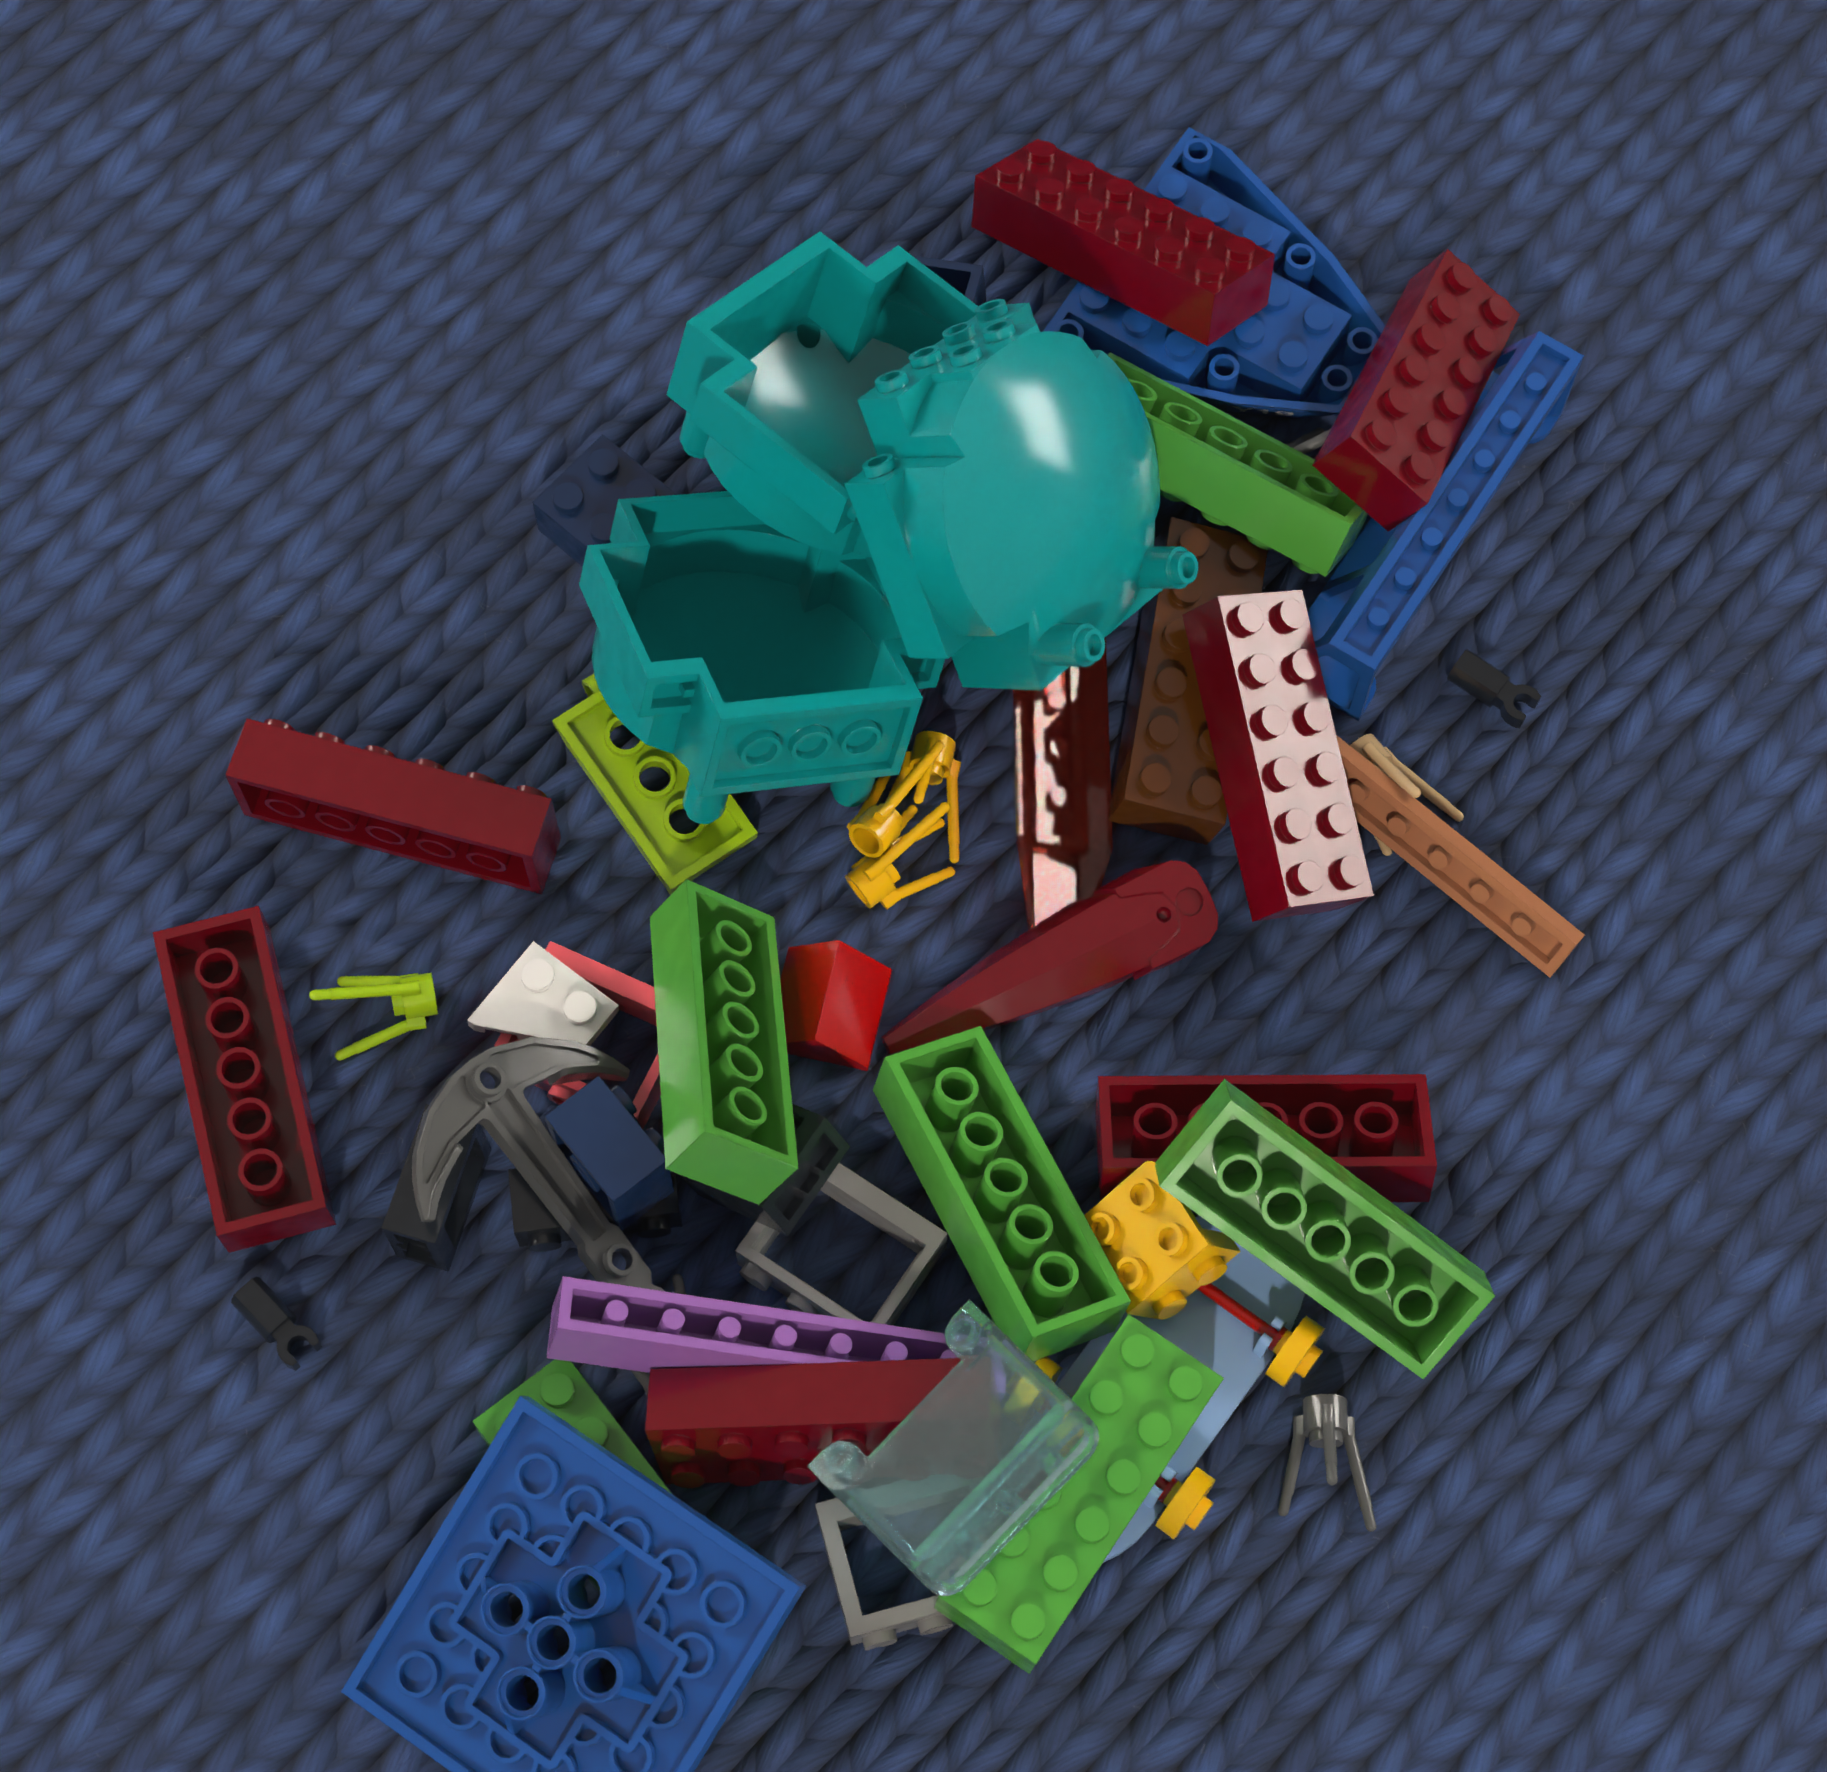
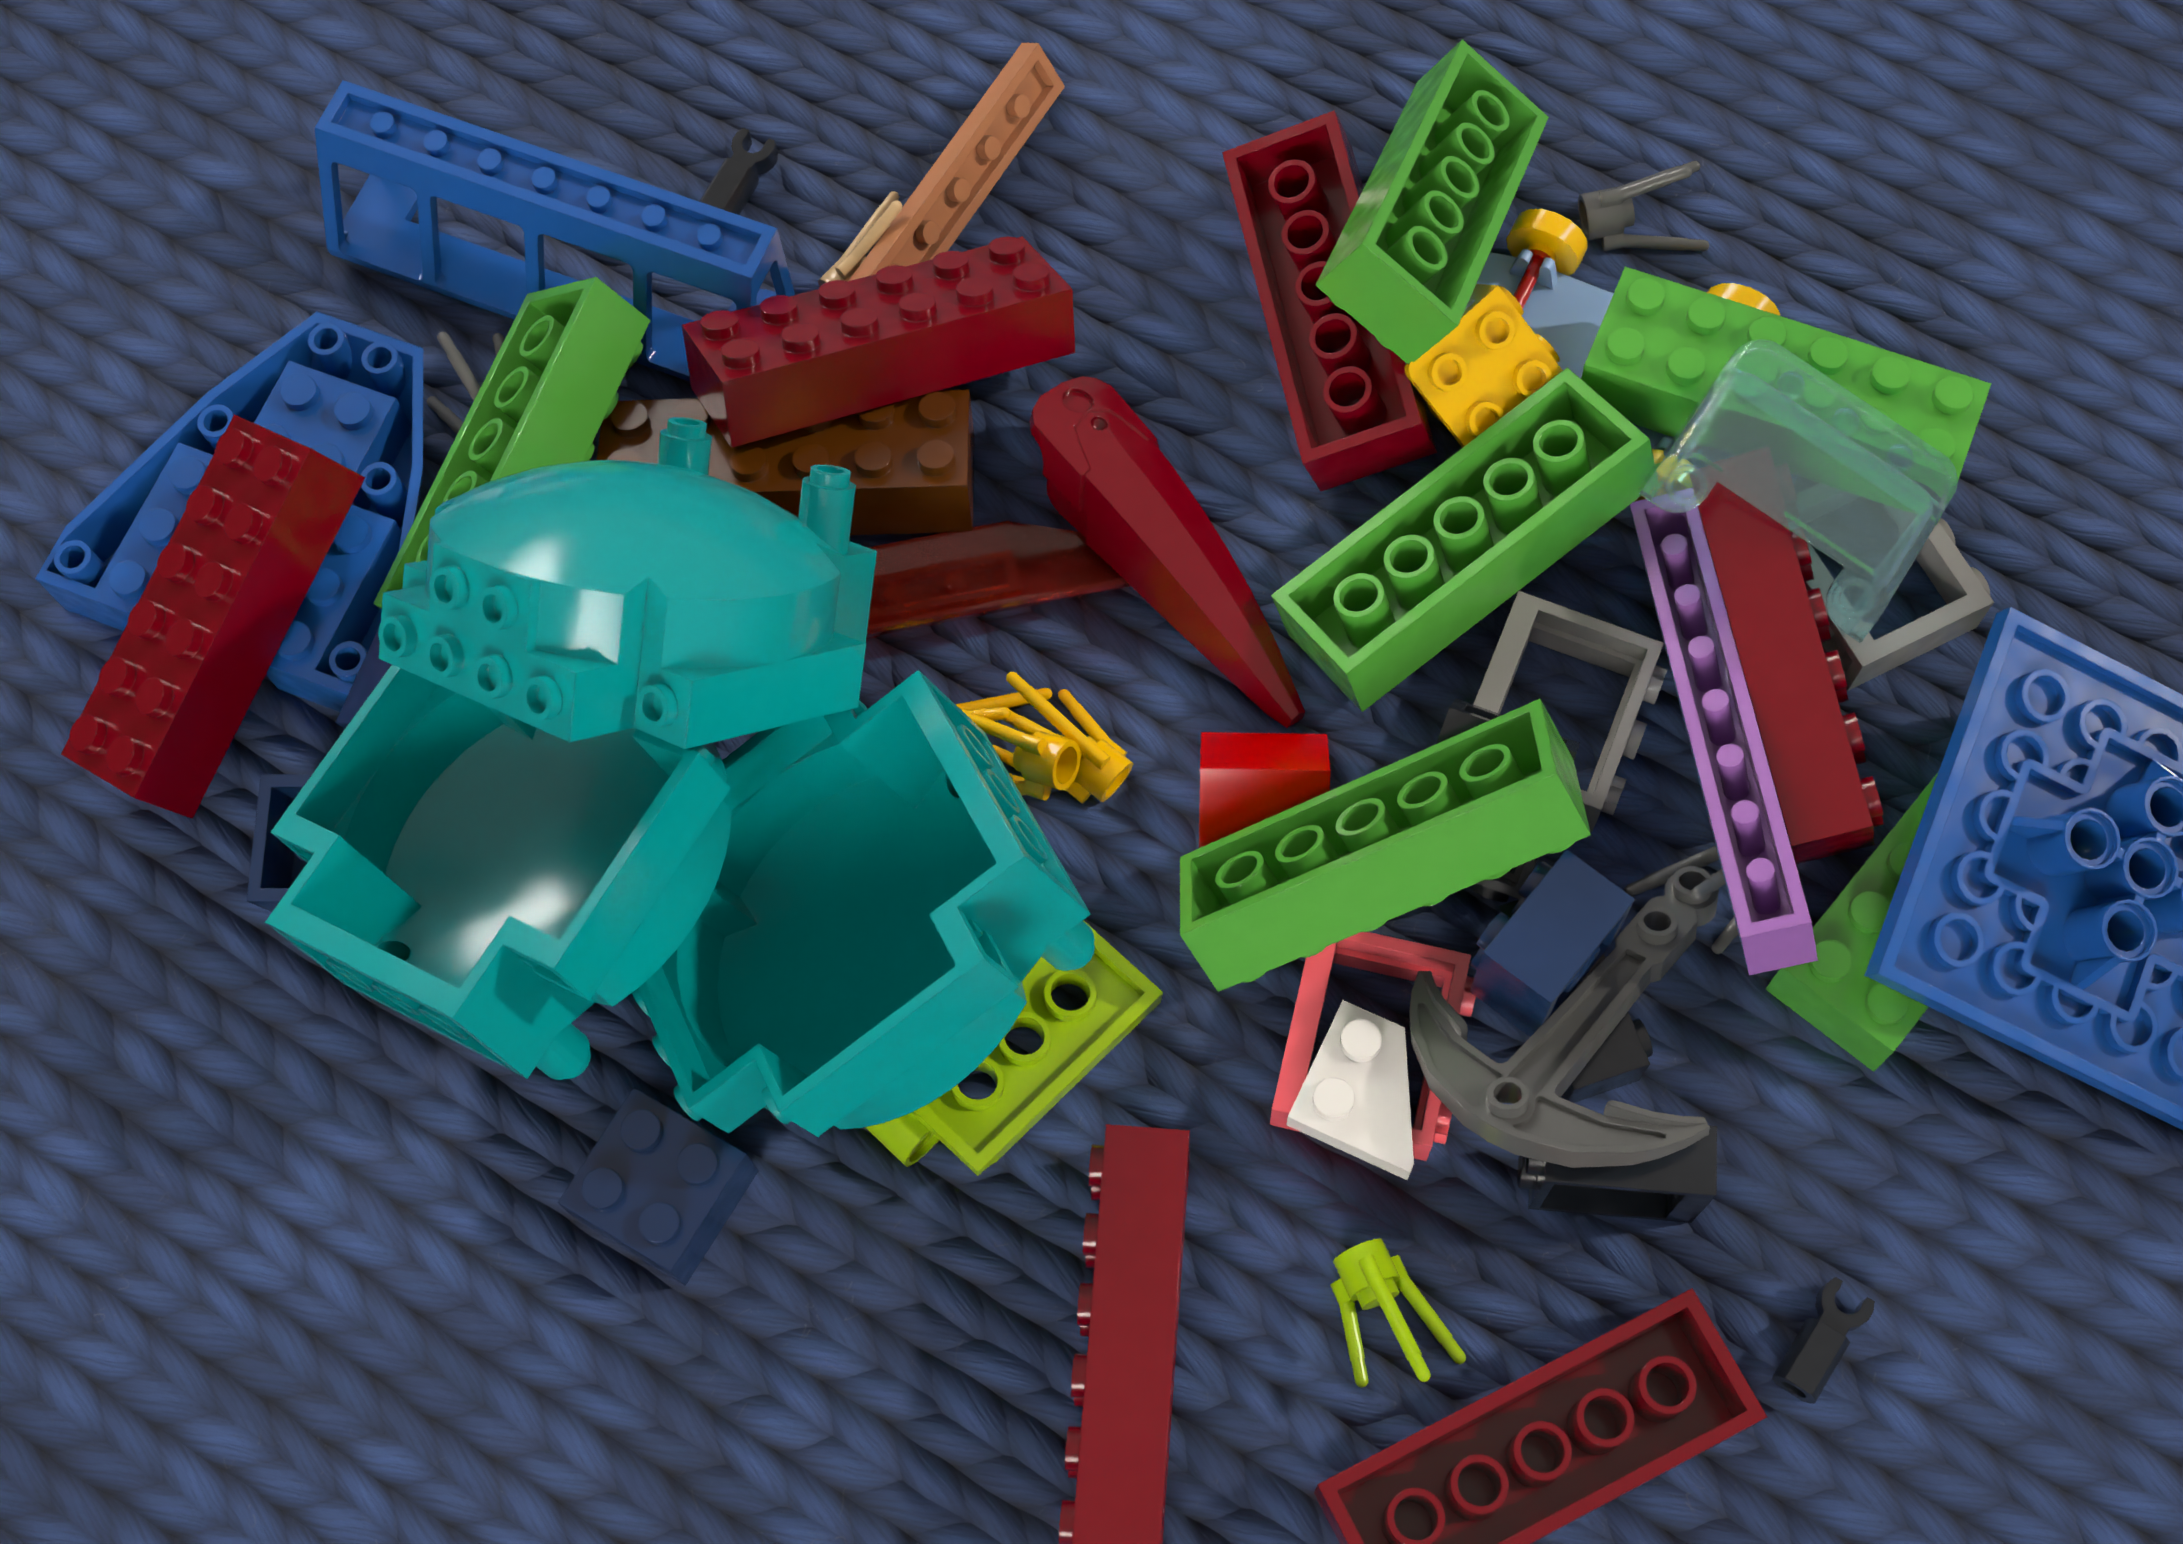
camera: 95 degrees left, 0 degrees up
(1417, 391) = (394, 259): dark red brick -> none

